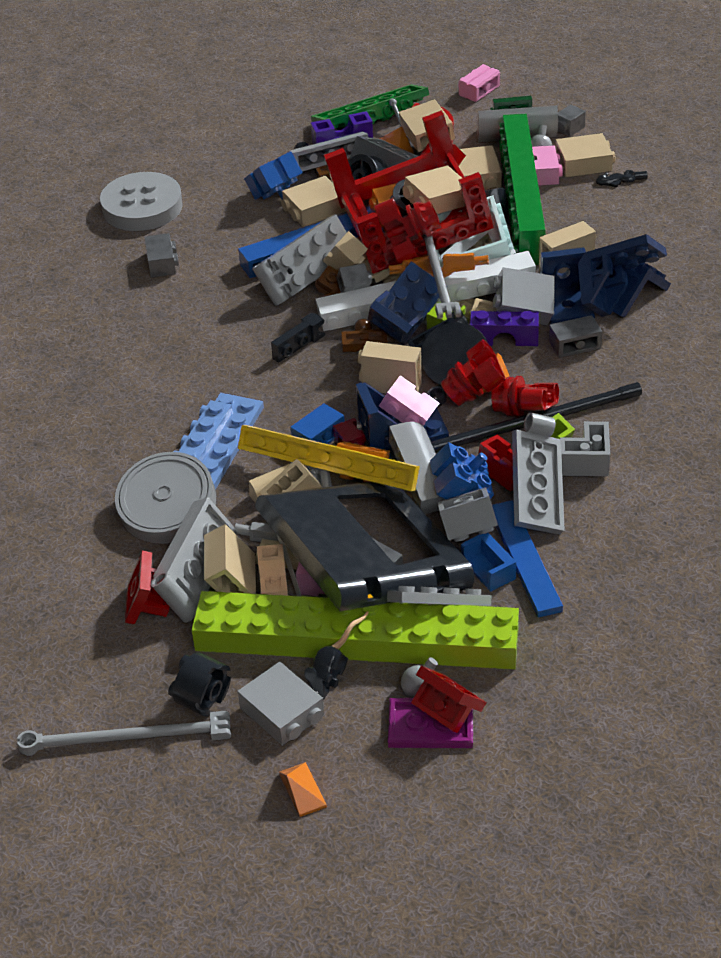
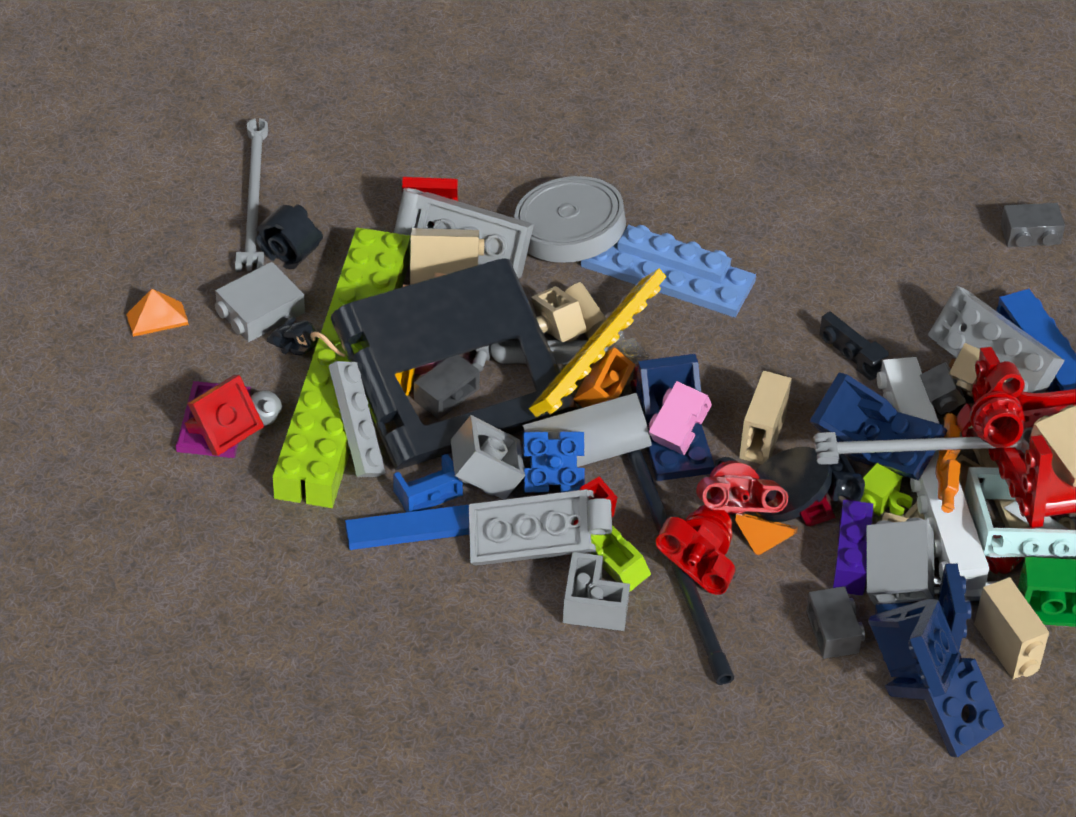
camera: 90 degrees right, 5 degrees up
(318, 425) = (670, 342): blue panel -> none

